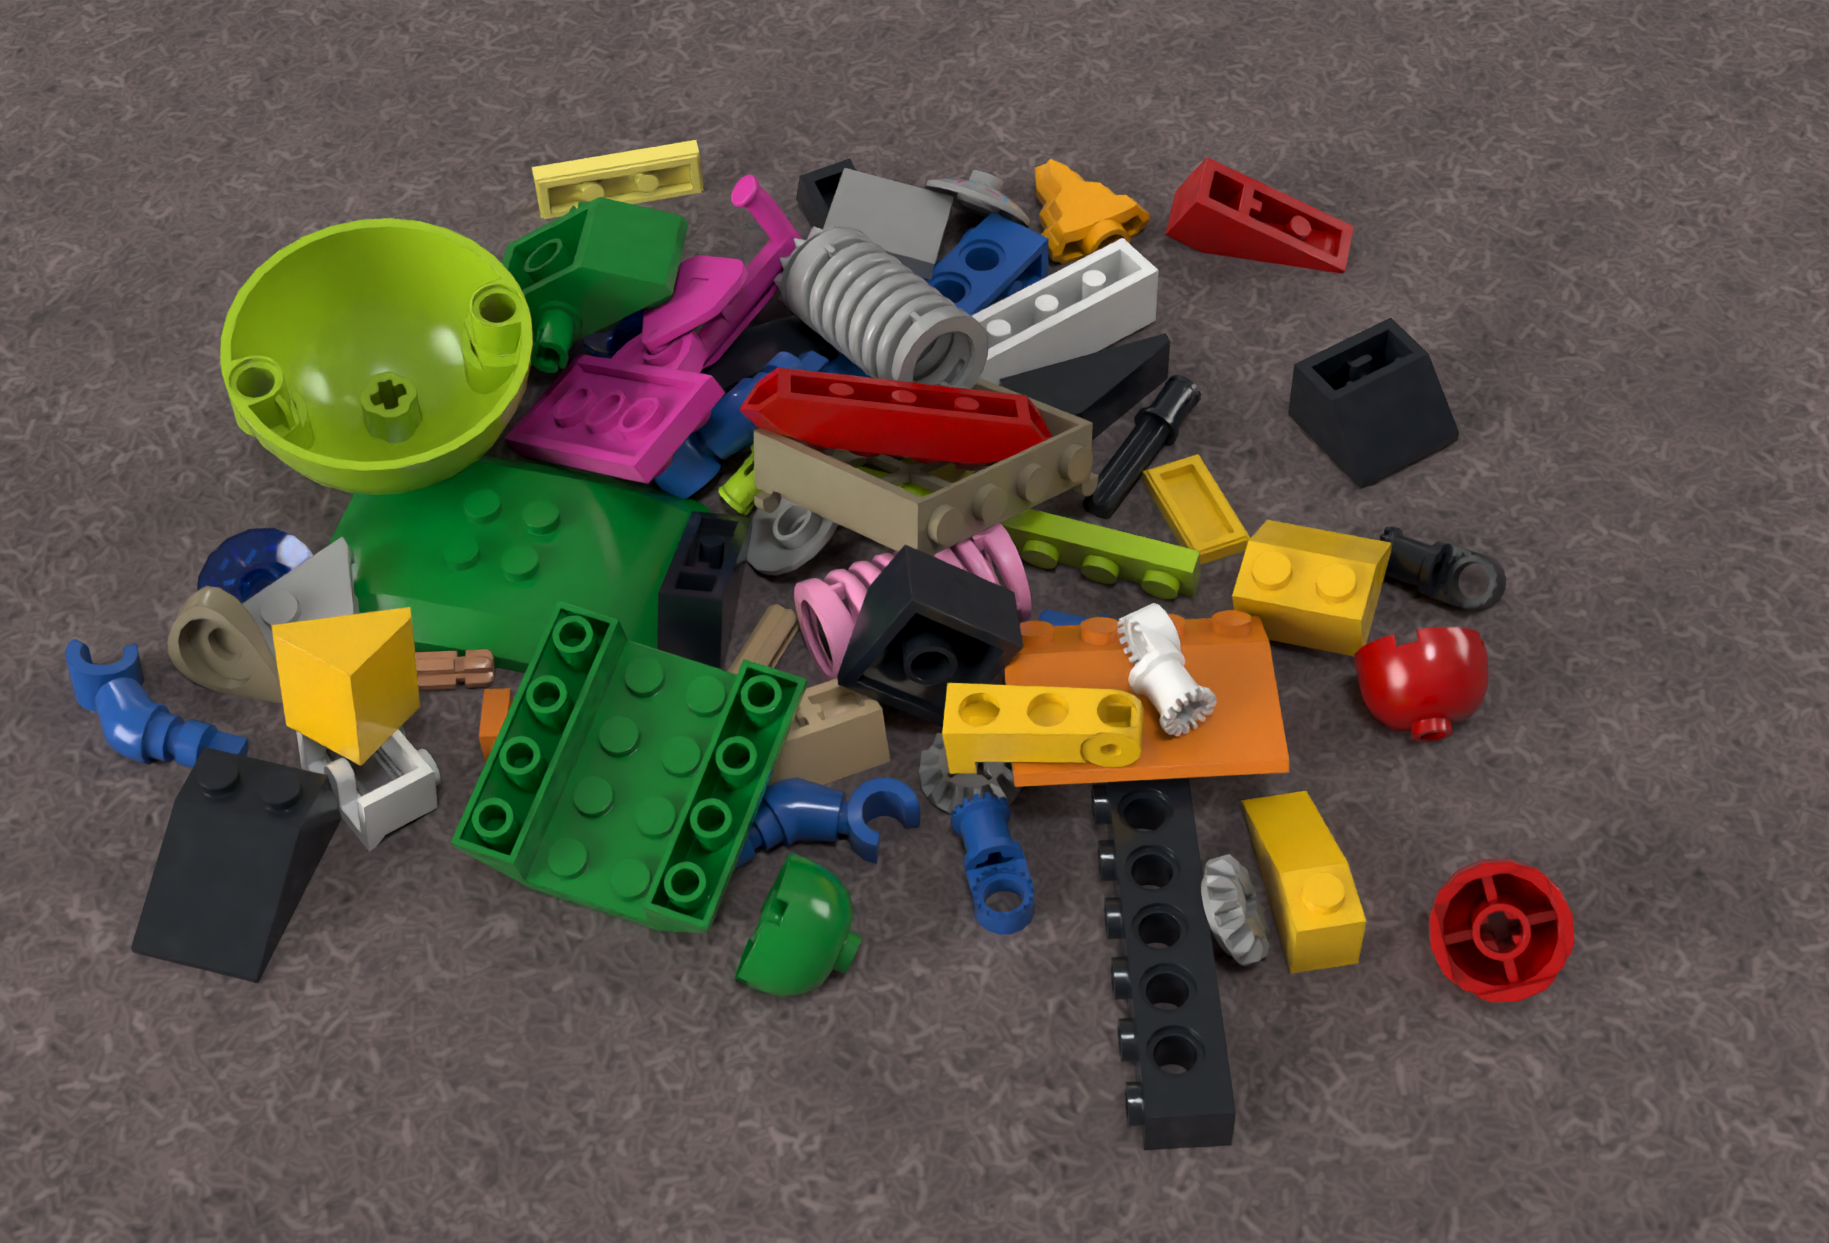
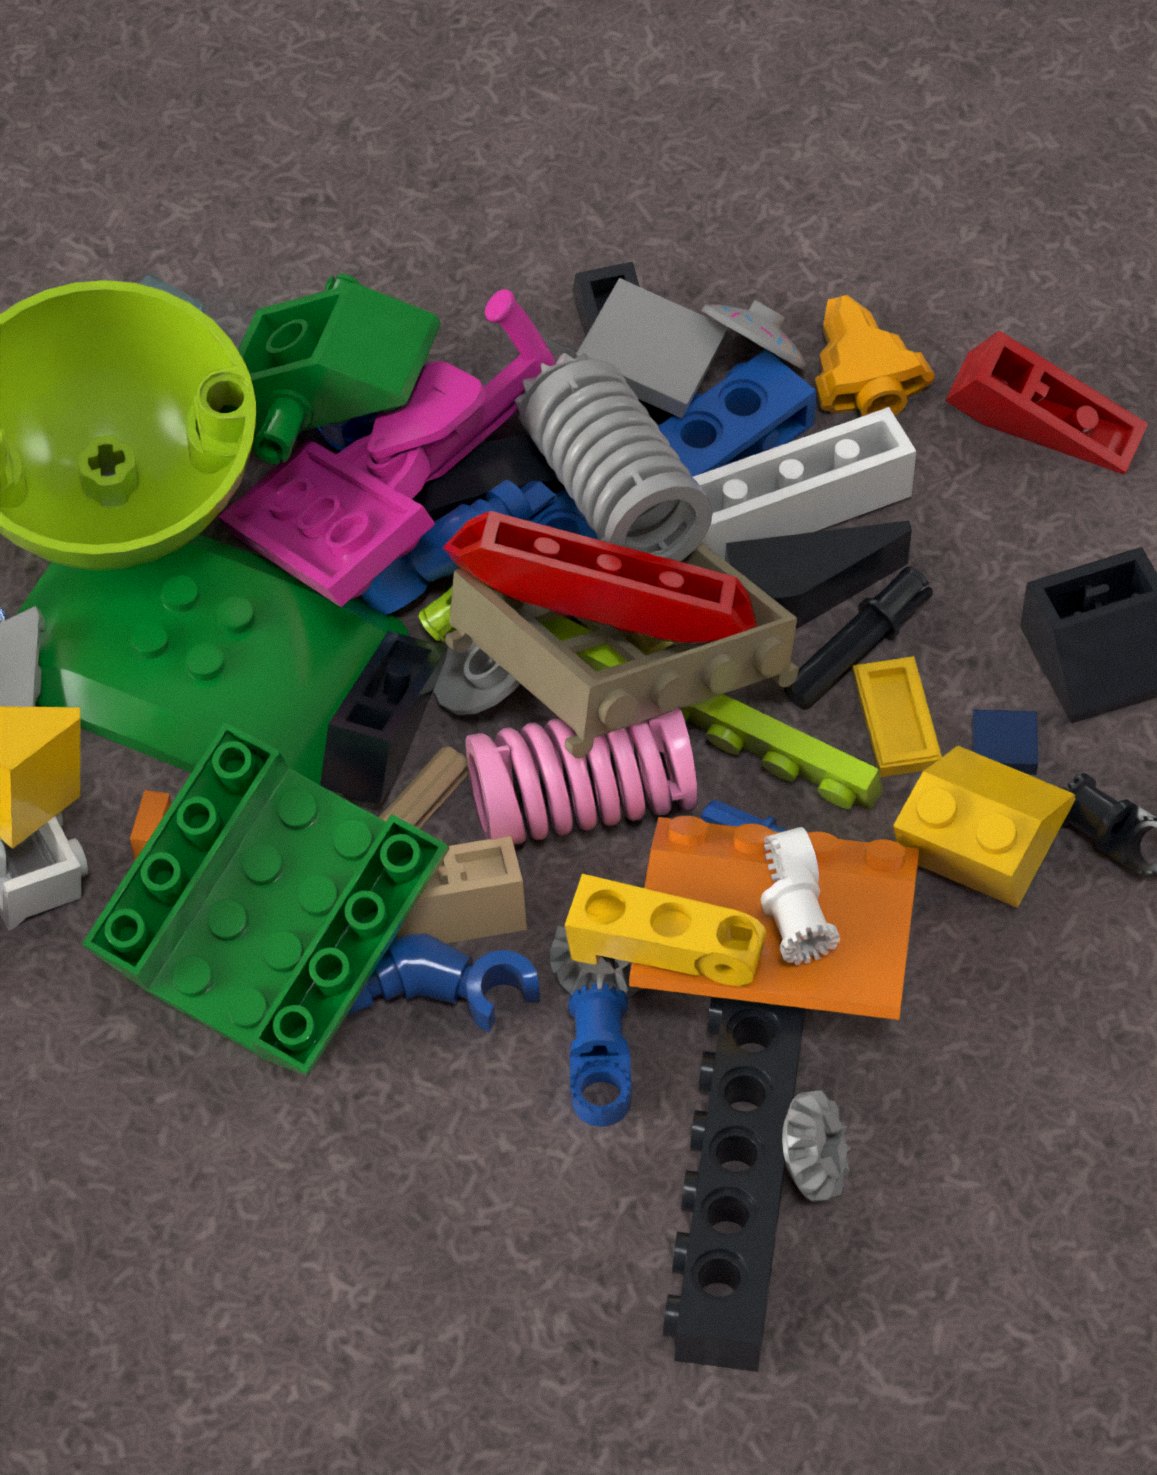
camera: 10 degrees right, 5 degrees up
(446, 669) = (115, 757): nougat axle -> none
(621, 176) = (391, 241): light yellow tile -> none
(800, 932) = (396, 1090): green cylinder -> none
(928, 629) = (580, 815): black slope -> none
(1305, 506) = (1007, 738): none -> dark blue tile
(1305, 882) = (895, 1126): yellow slope -> none
(1424, 682) = (1068, 947): red cylinder -> none
(1515, 915) = (1063, 1213): red cylinder -> none

